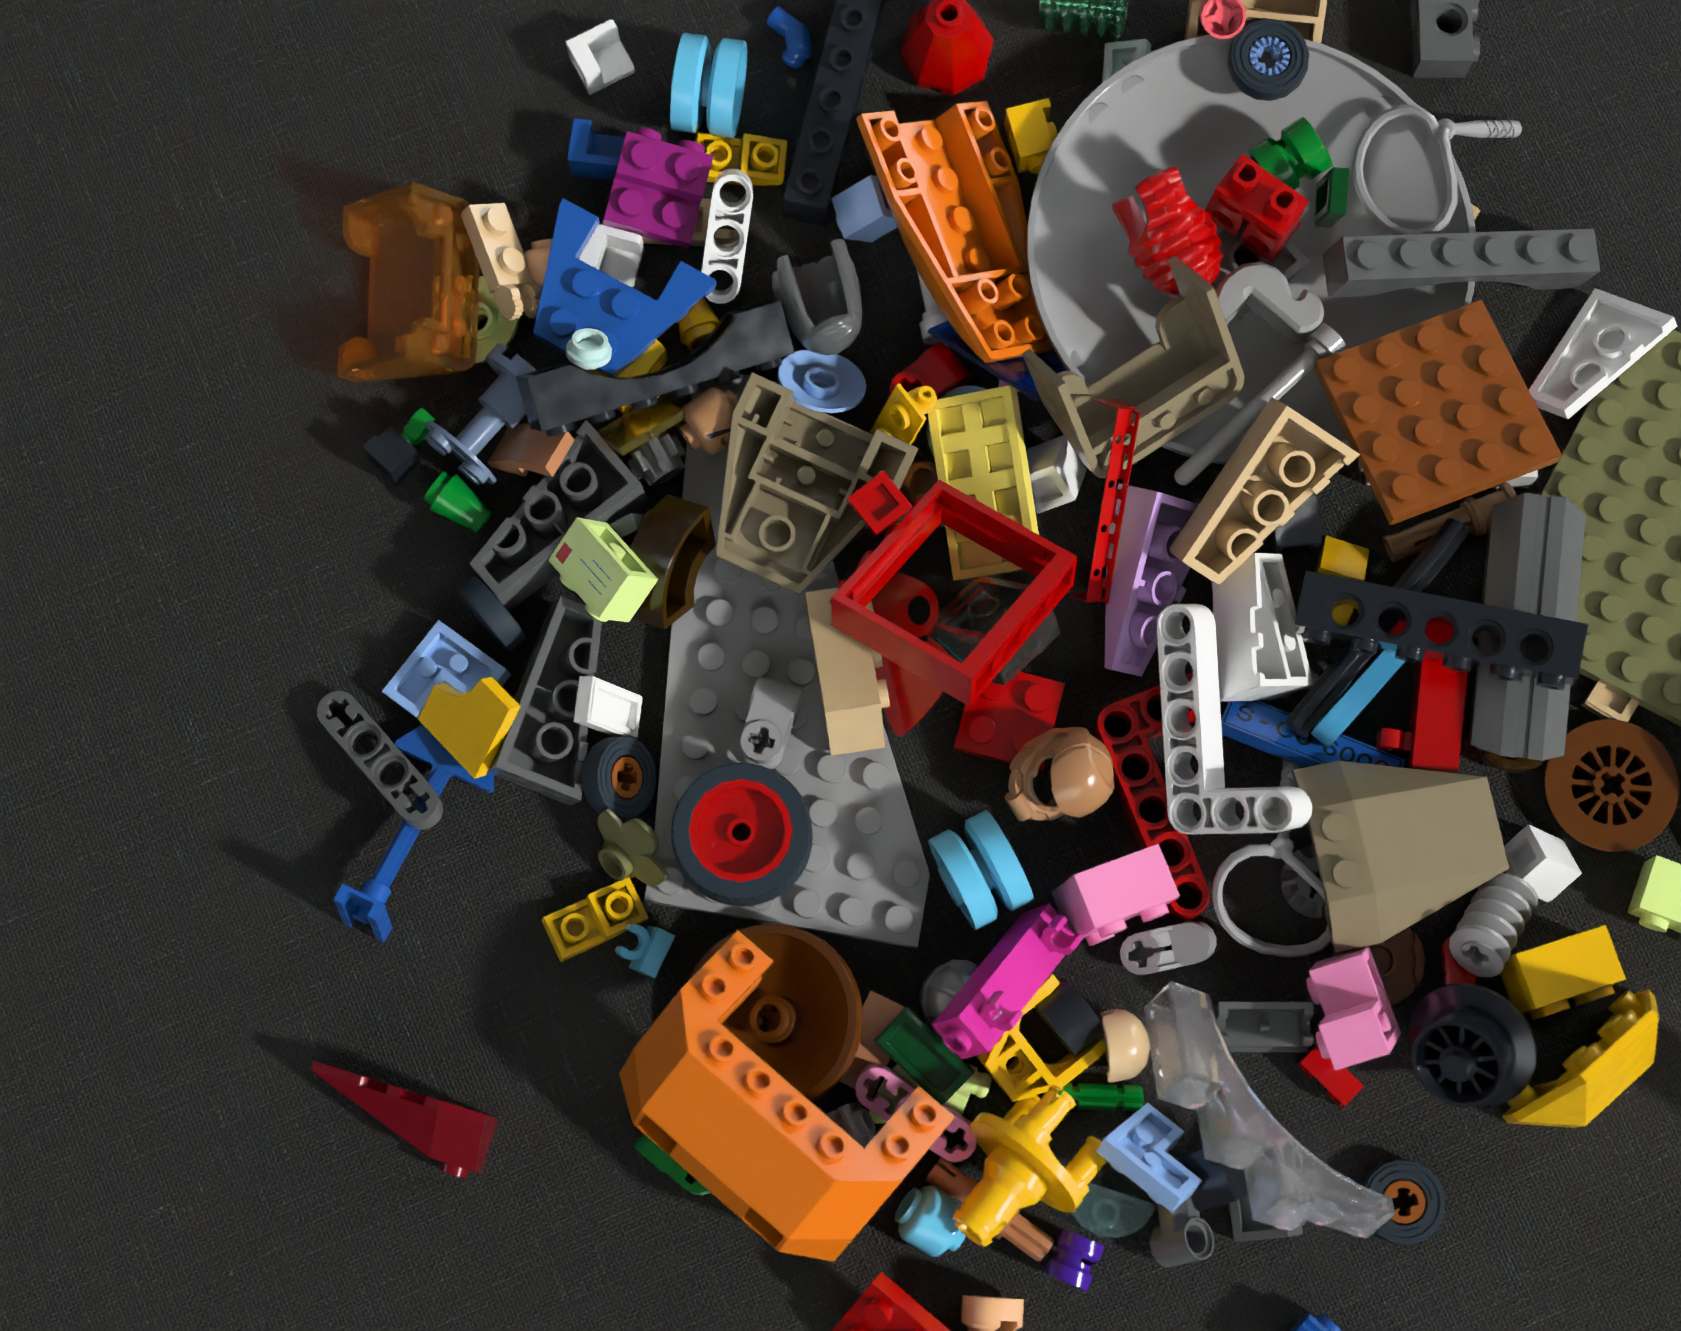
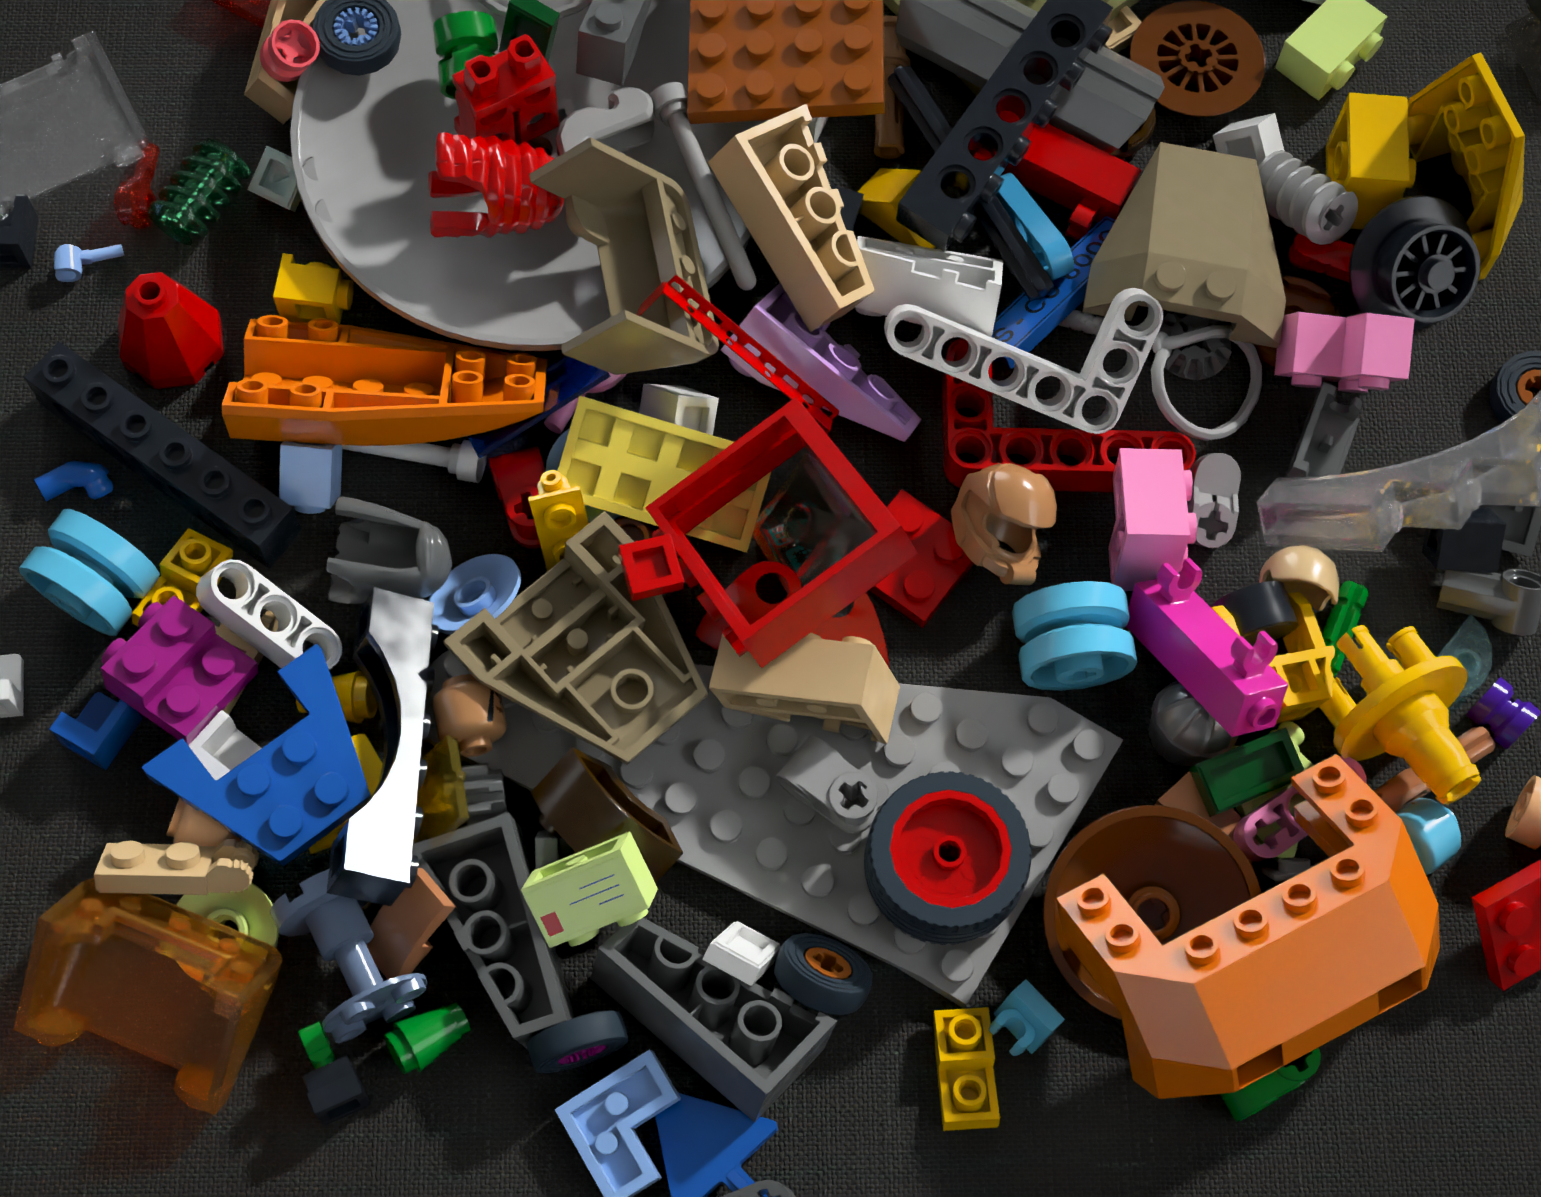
camera: 75 degrees left, 10 degrees down
(470, 722) = (701, 1109): yellow tile -> none
(589, 349) = (335, 799): light aqua plate -> none
(629, 849) = (910, 992): olive plate -> none
(1141, 1153) = (1423, 600): light blue plate -> none
(1339, 1083) = (1401, 401): red piece -> none

